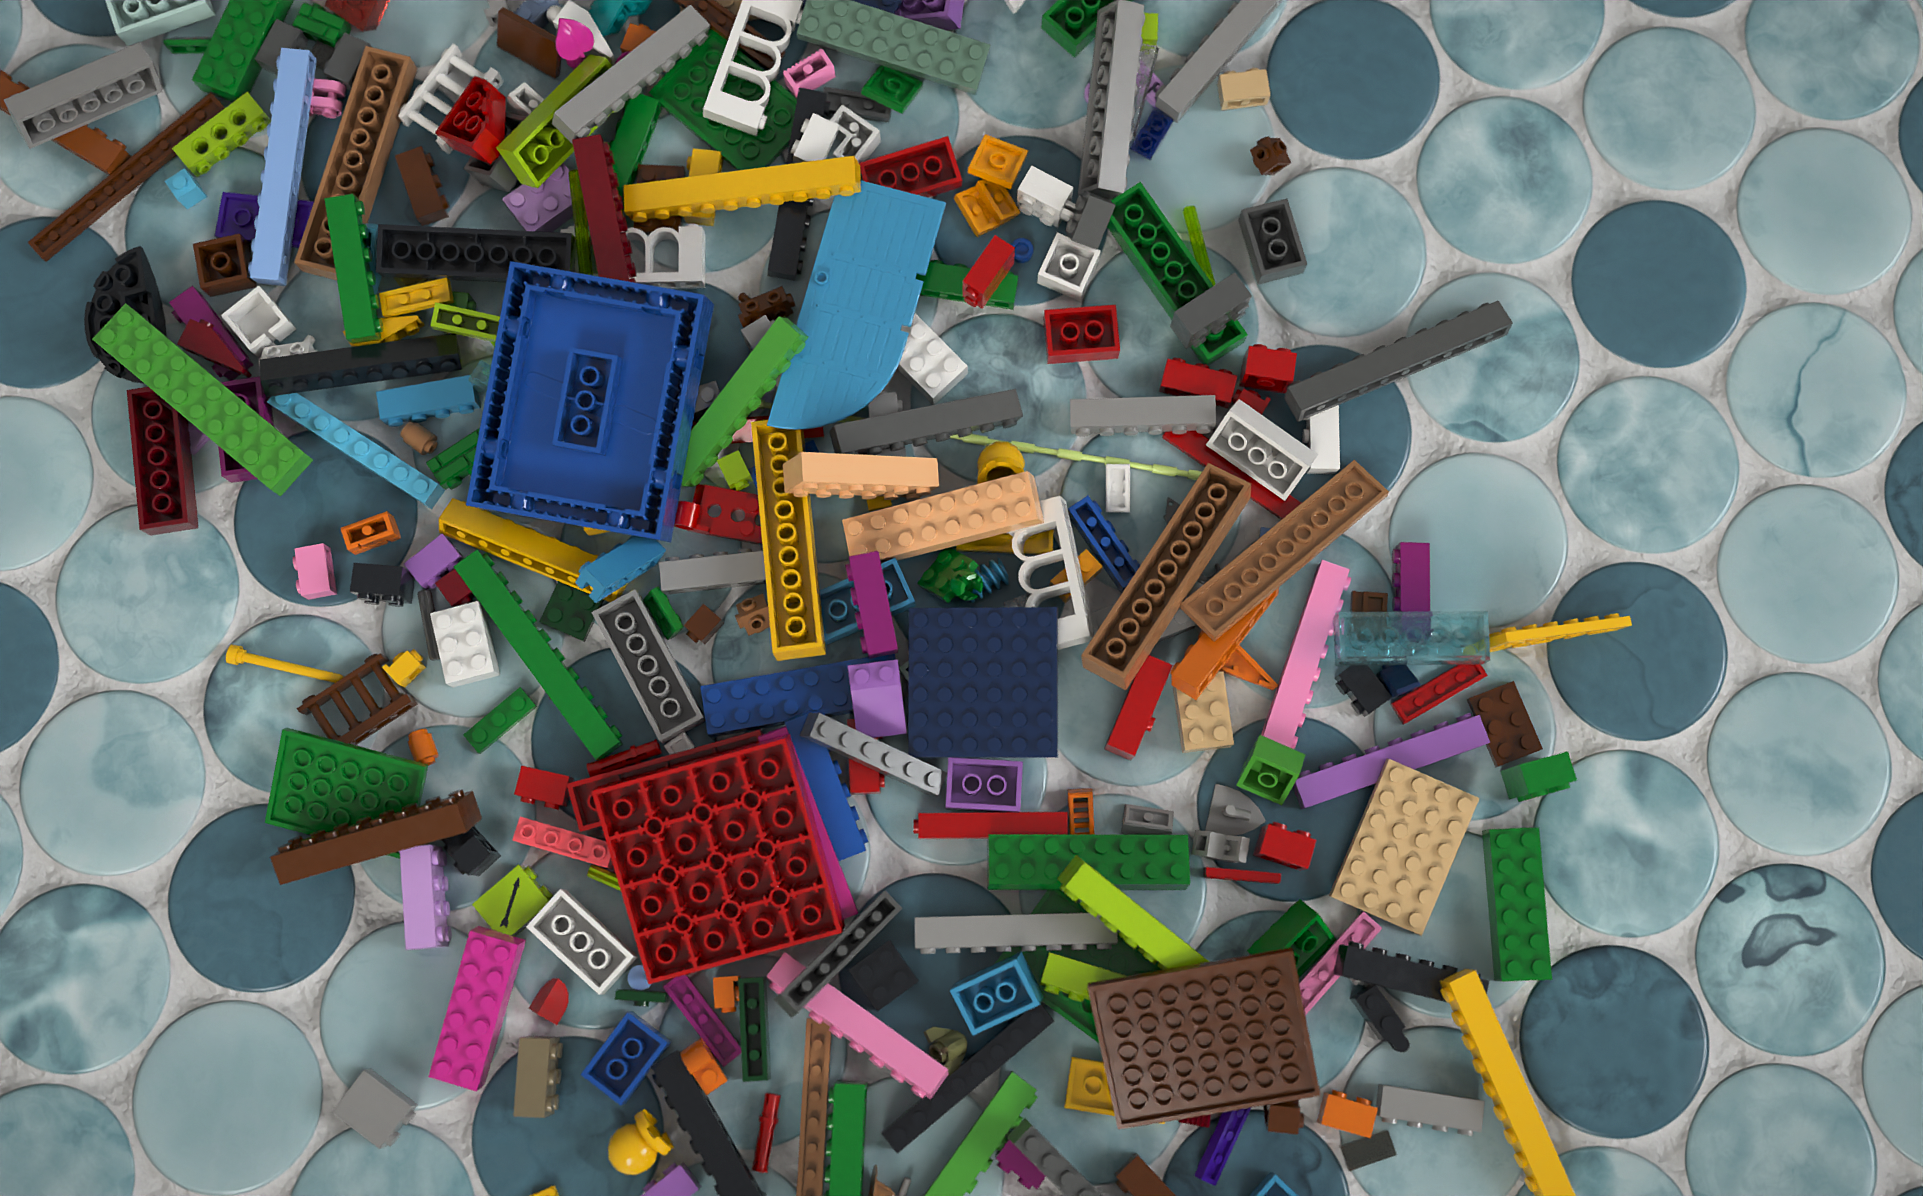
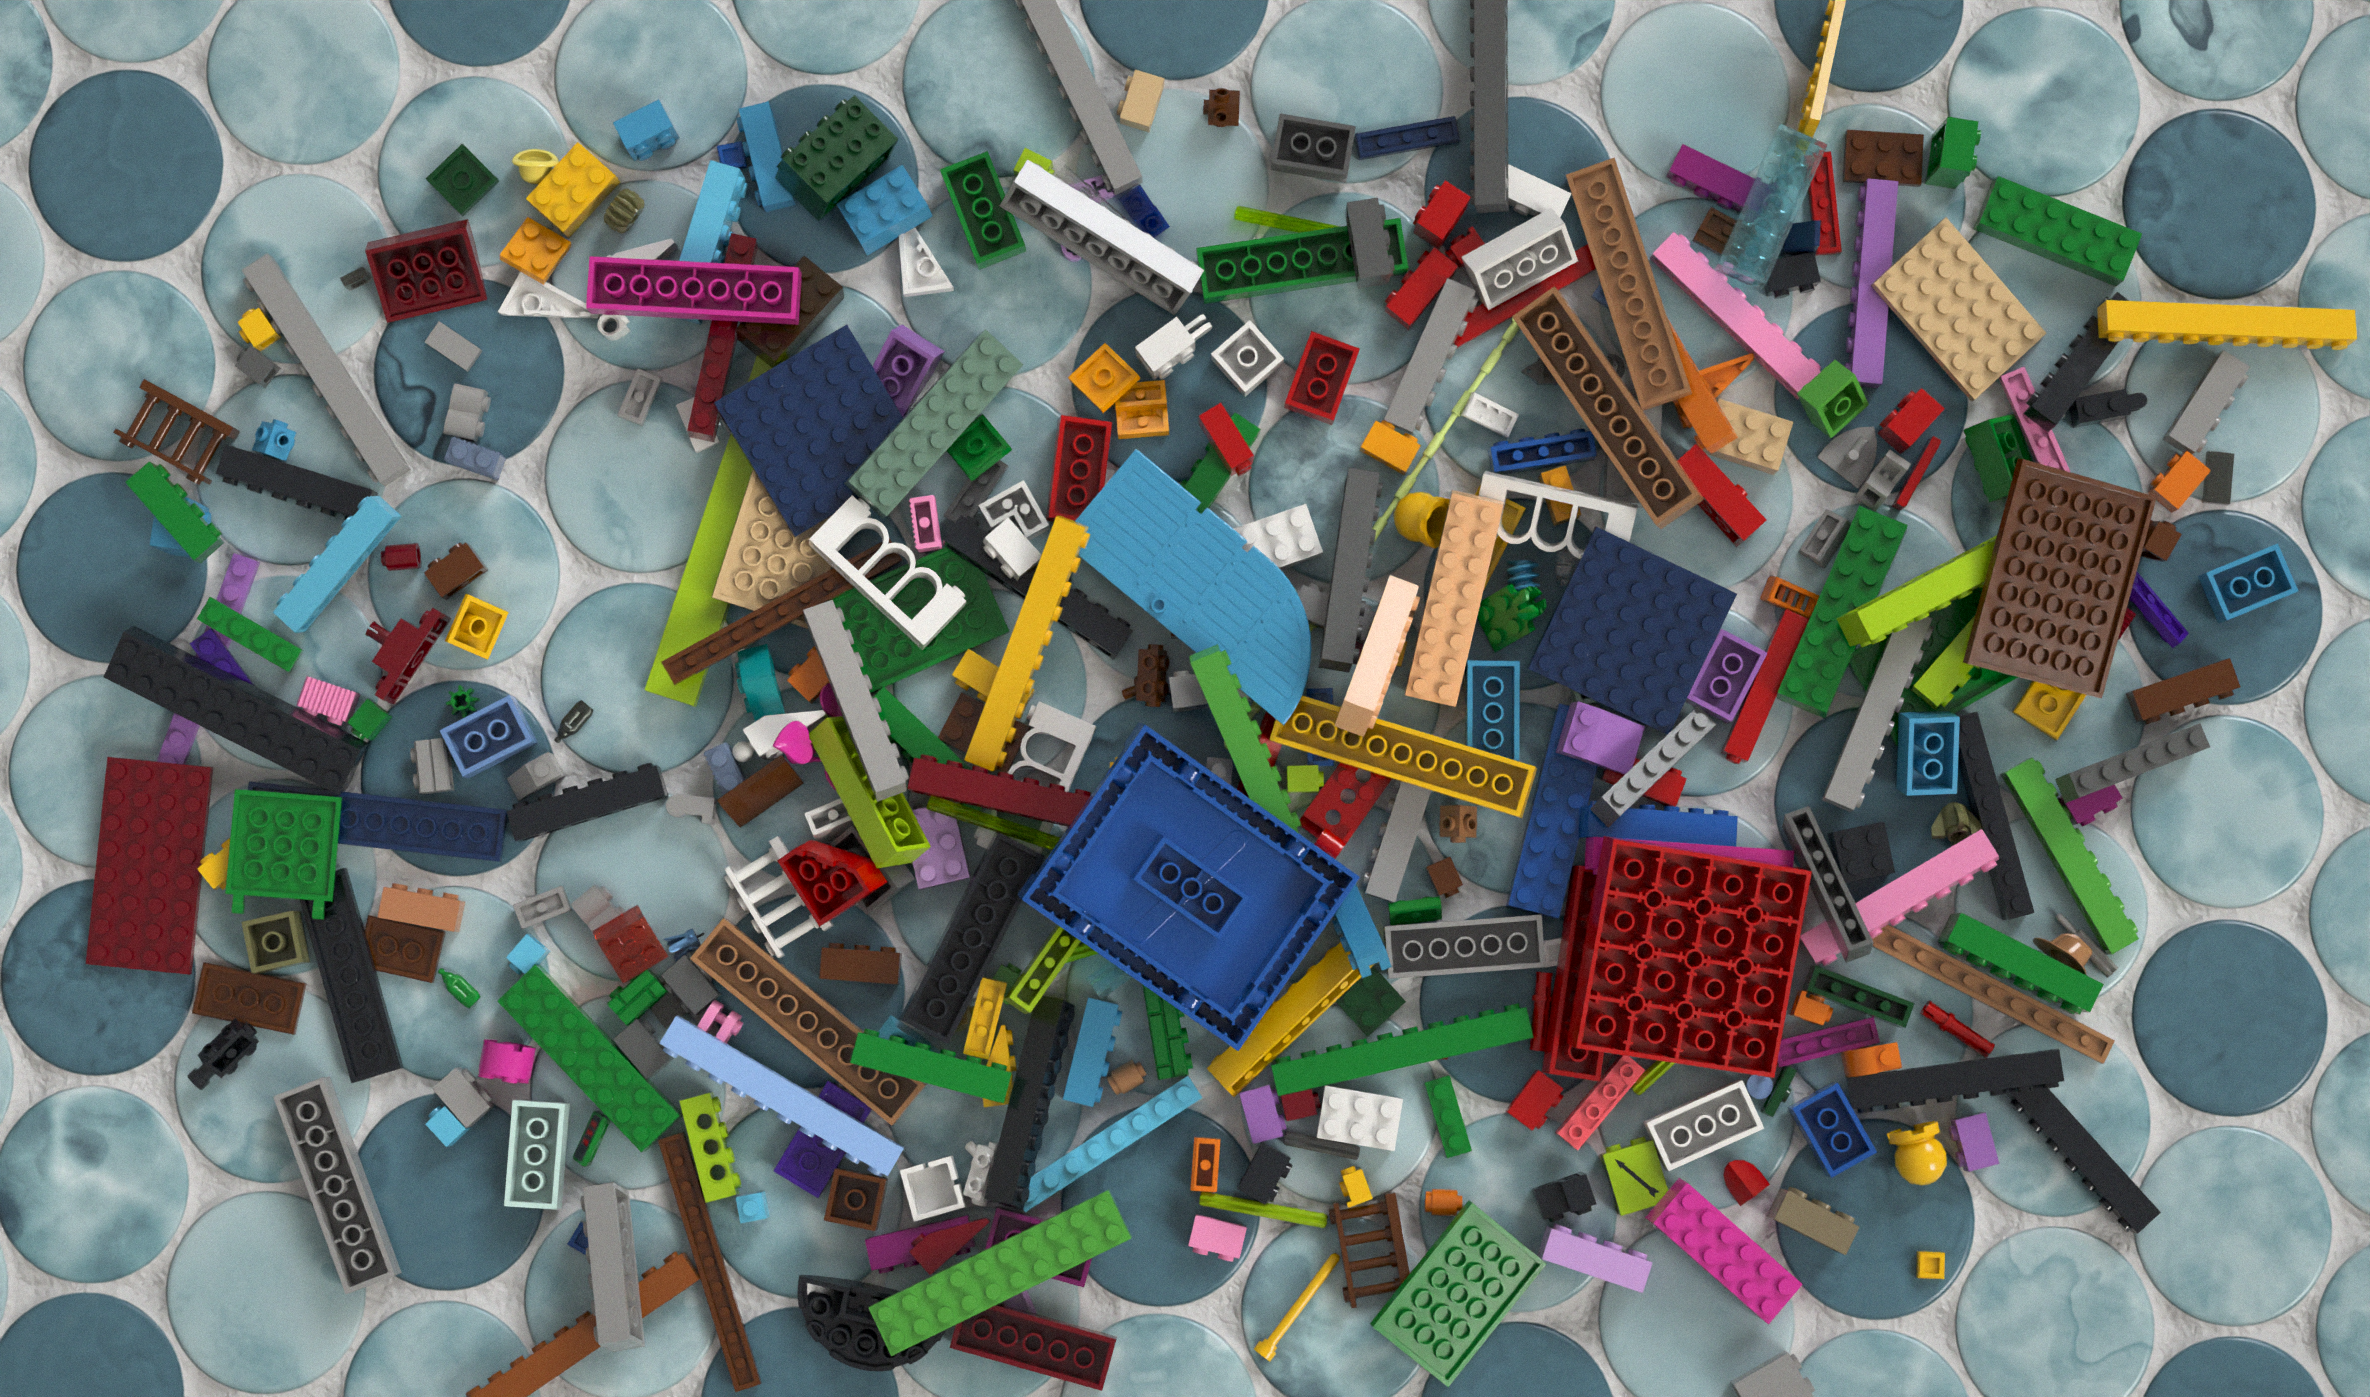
camera: 65 degrees left, 5 degrees up
(356, 606) = (1264, 1210): none -> lime axle
(376, 836) = (1519, 1277): reddish brown brick -> none
(382, 39) = (684, 943): none -> flat silver piece
(873, 605) = (1512, 701): magenta brick -> none
(1023, 250) = (1203, 396): blue tile -> none
(1050, 417) = (1390, 447): none -> light orange brick
(1090, 219) = (1216, 315): dark grey brick -> none
(1320, 317) = (1407, 138): none -> dark blue tile

